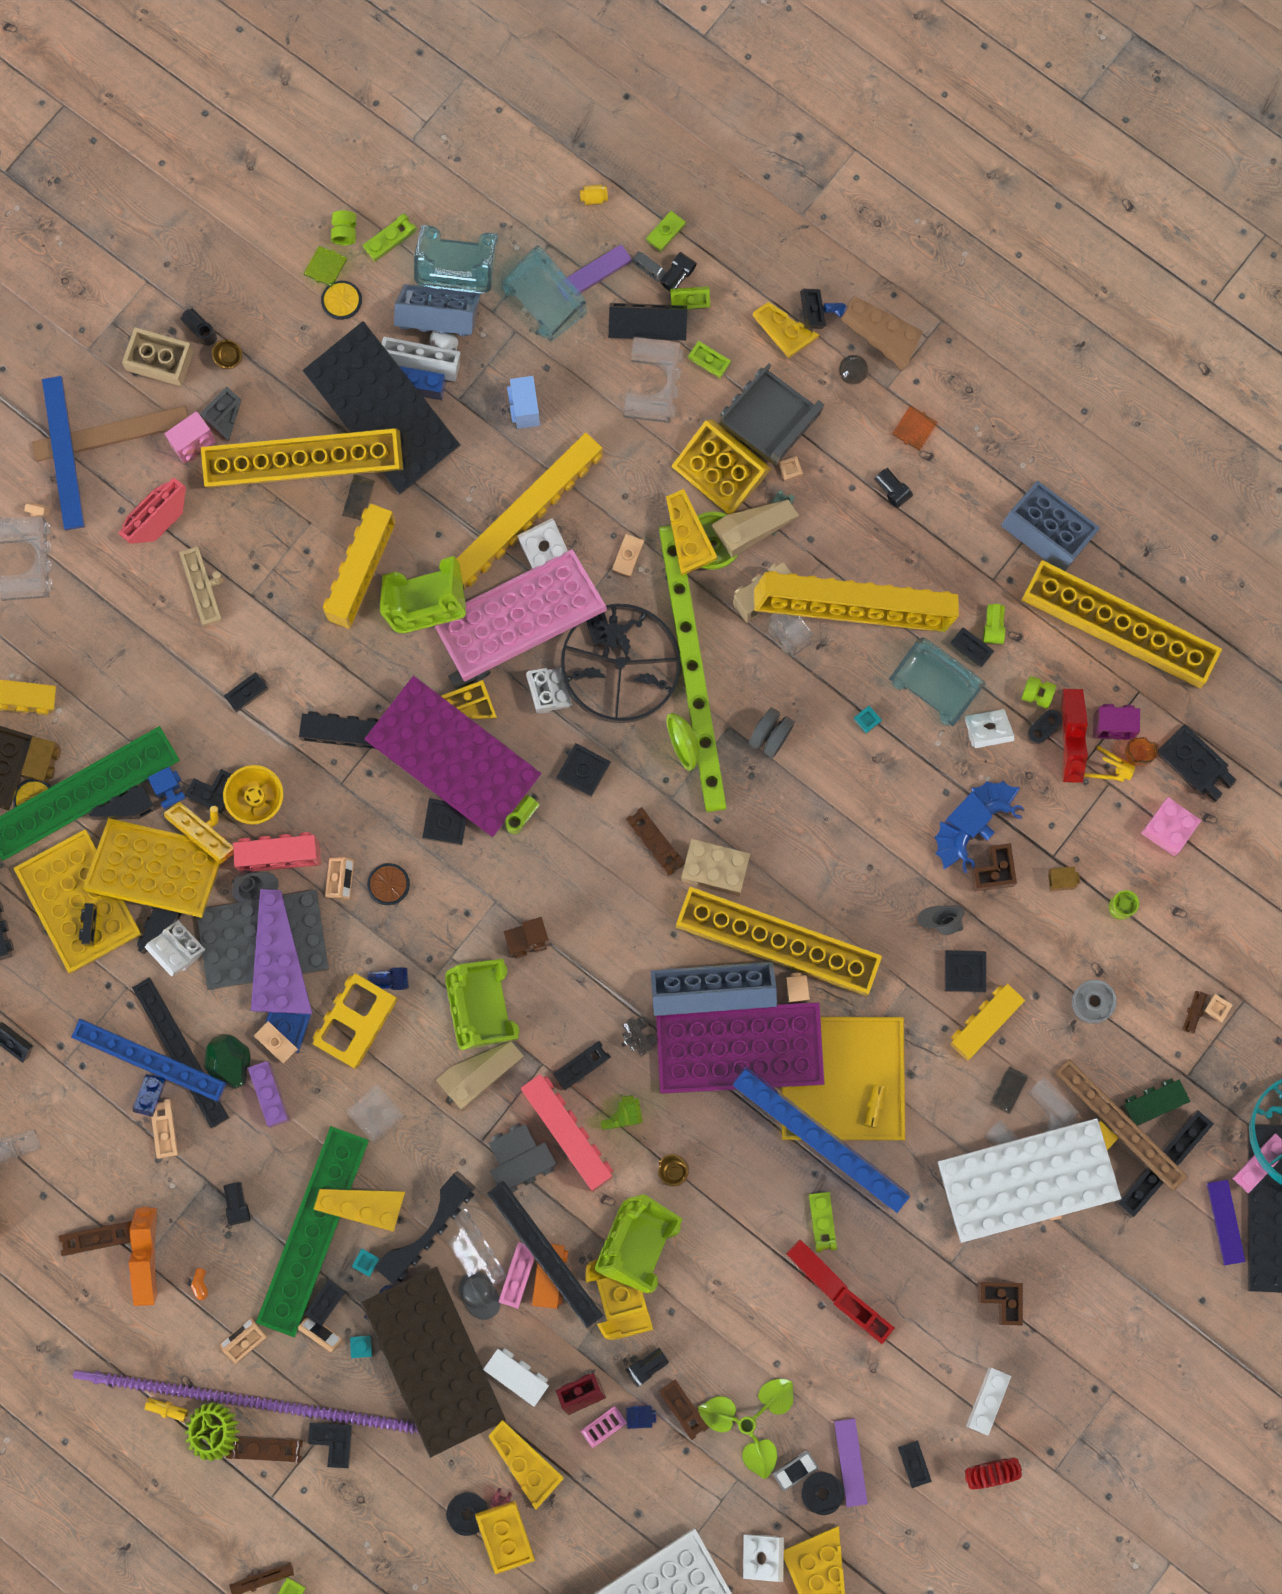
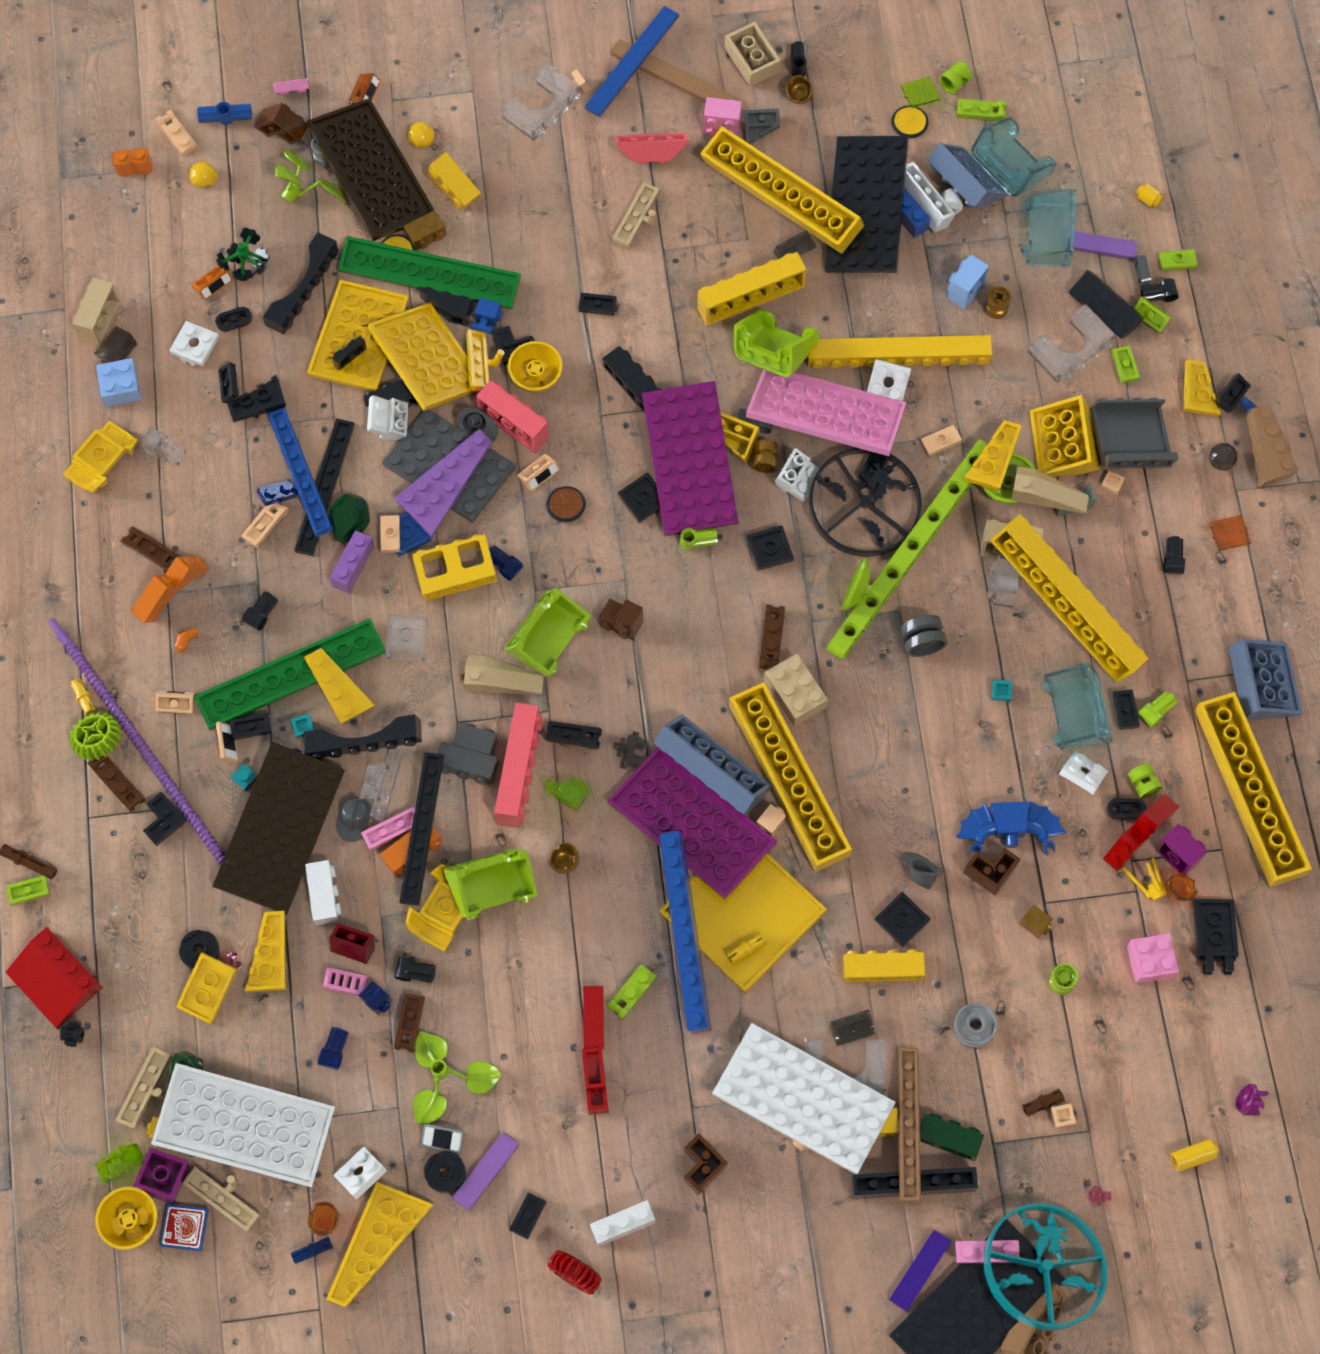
camera: 45 degrees right, 10 degrees down
(53, 1033) = (262, 400): none -> black wing
(509, 699) = (766, 454): none -> pearl gold wheel
(563, 397) = (997, 302): none -> pearl gold wheel
(649, 1489) = (332, 1054): none -> clear blue piece

